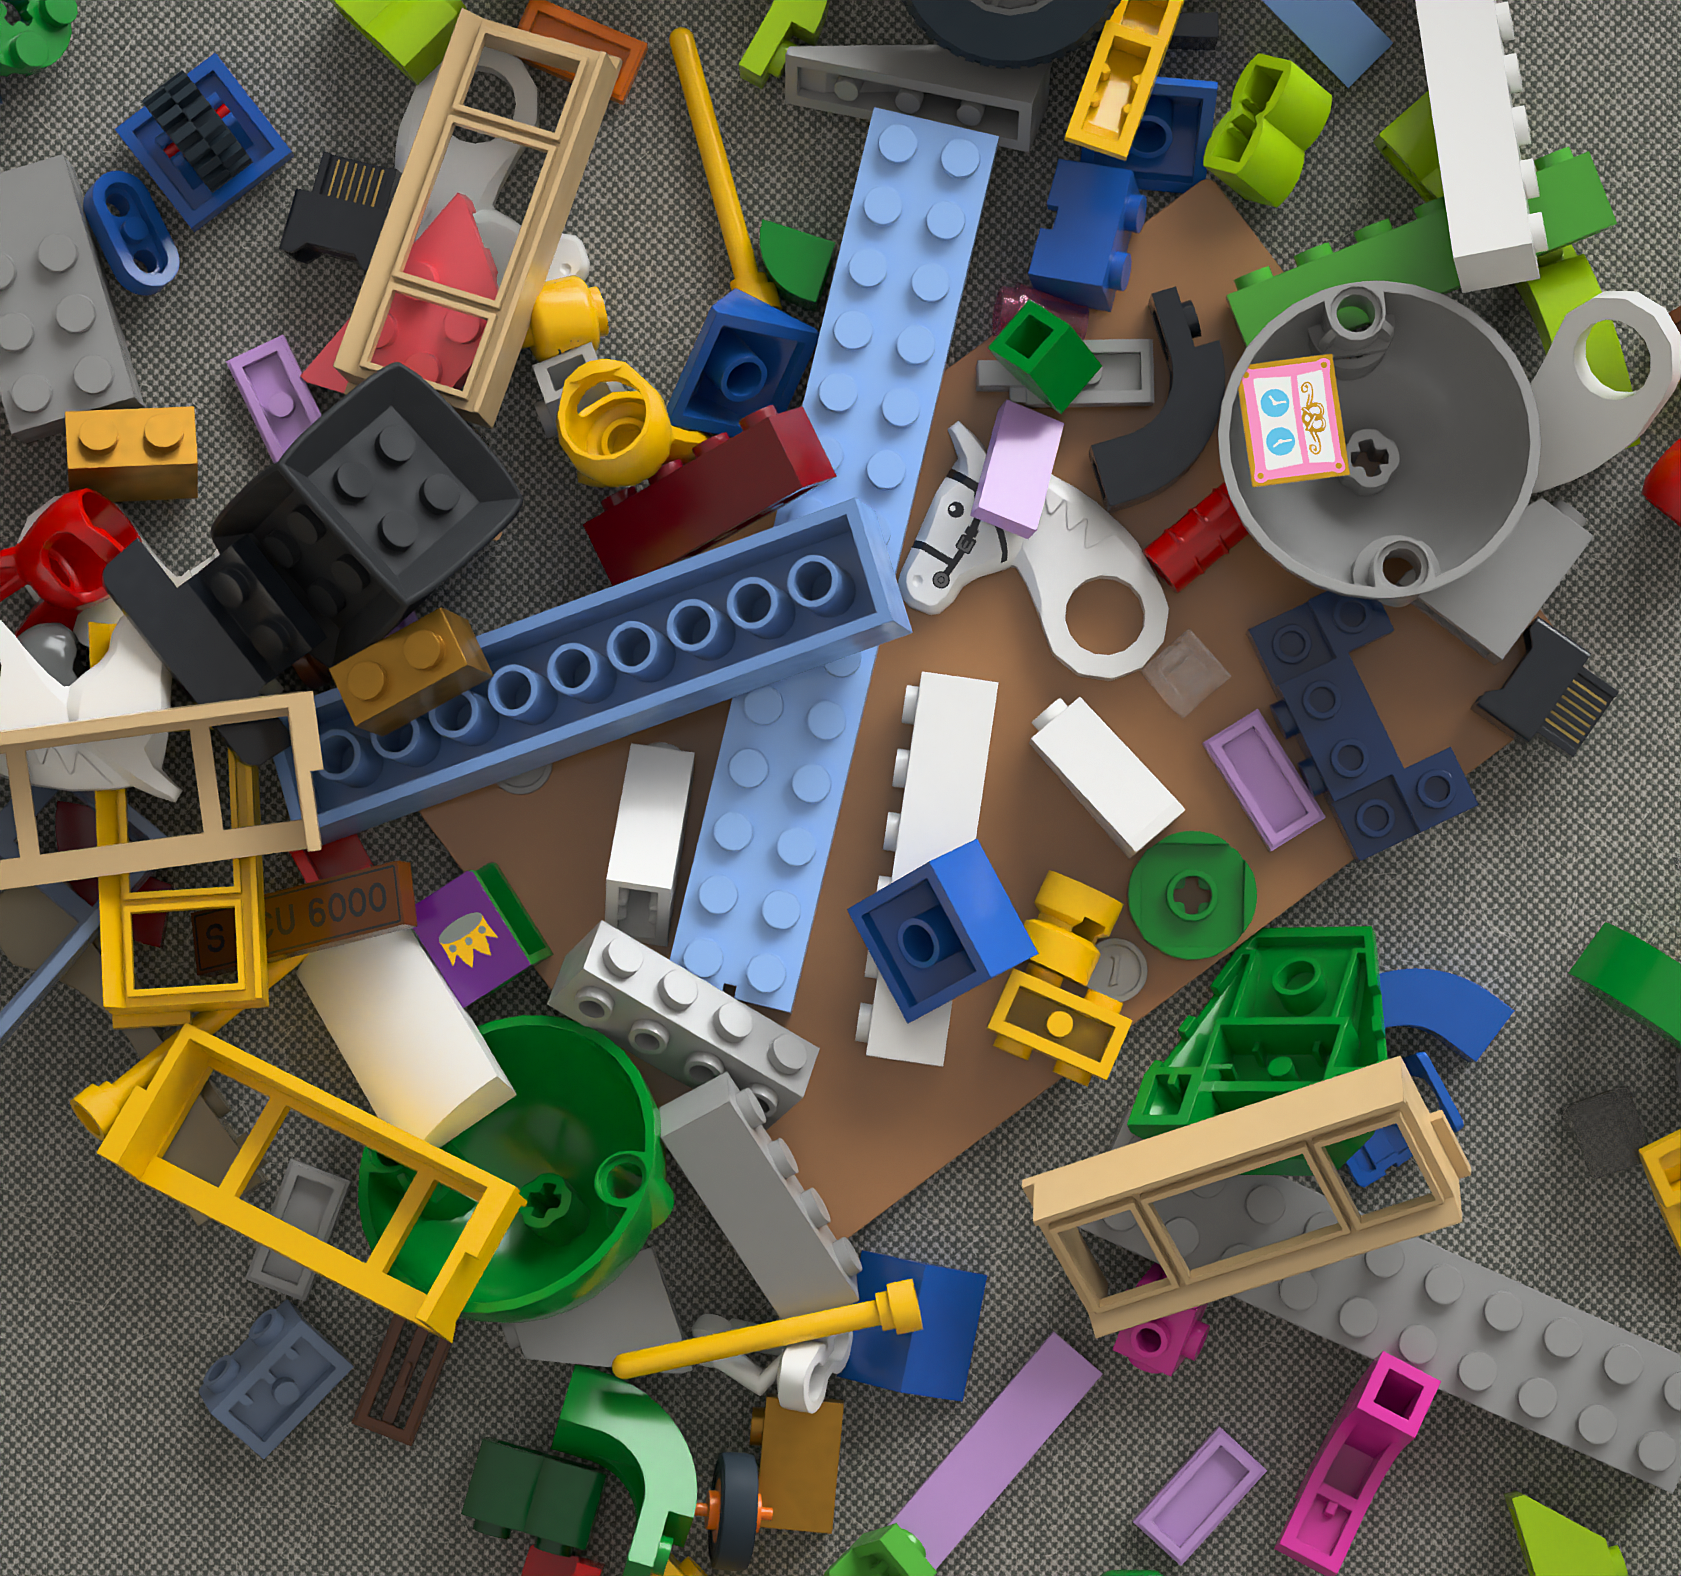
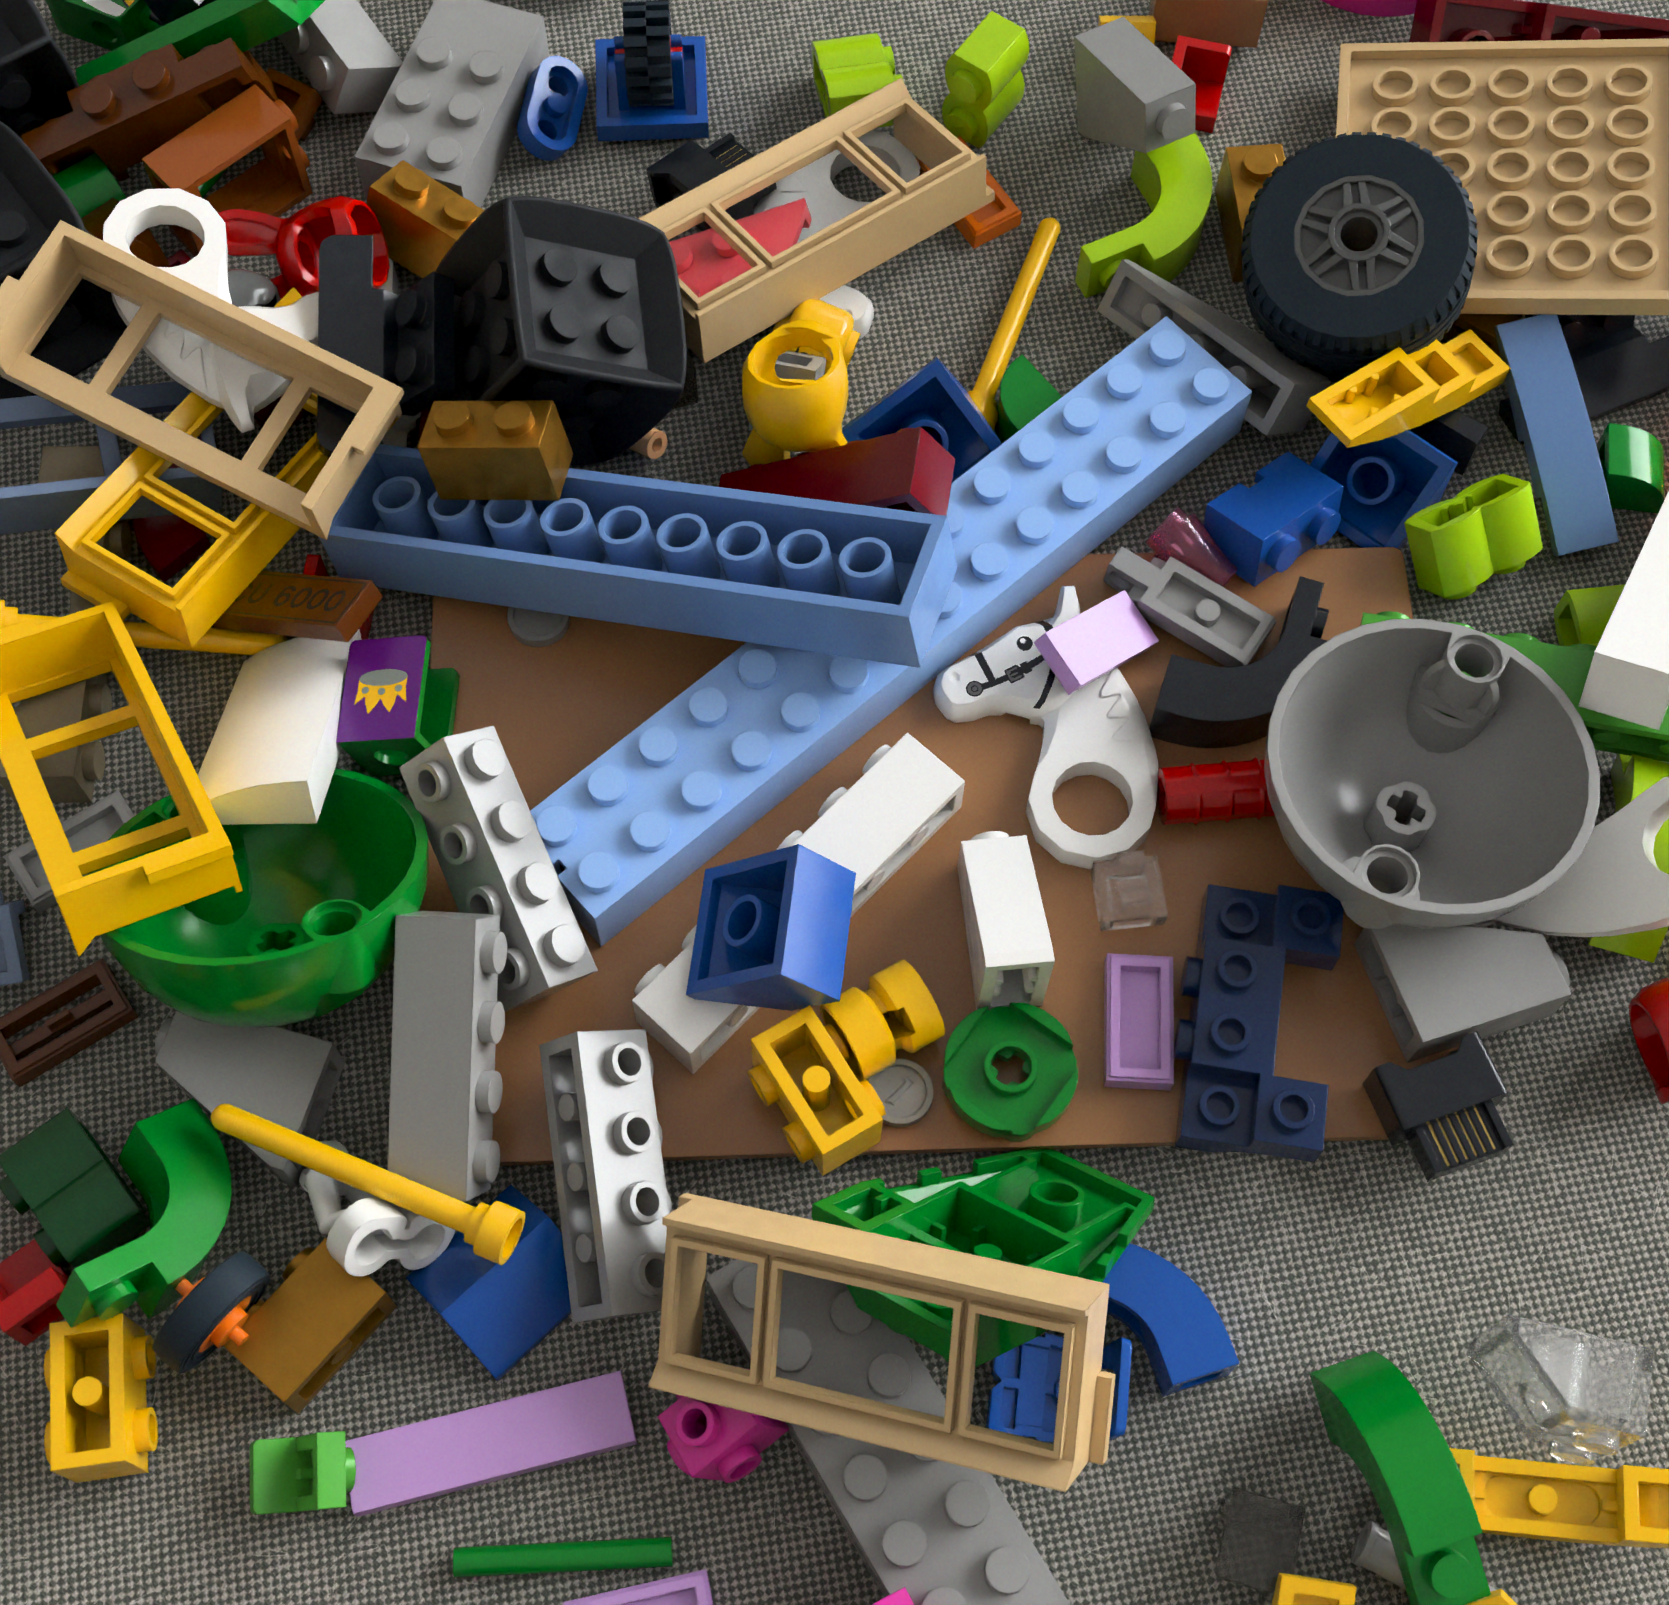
camera: 30 degrees right, 20 degrees down
(649, 842) = (584, 717): white slope -> none
(945, 1198) = (607, 1171): none -> light grey brick
(1045, 356) = (1180, 566): green brick -> none
(1108, 1490) = (562, 1557): none -> green bar
(1293, 421) = (1364, 705): sticker -> none

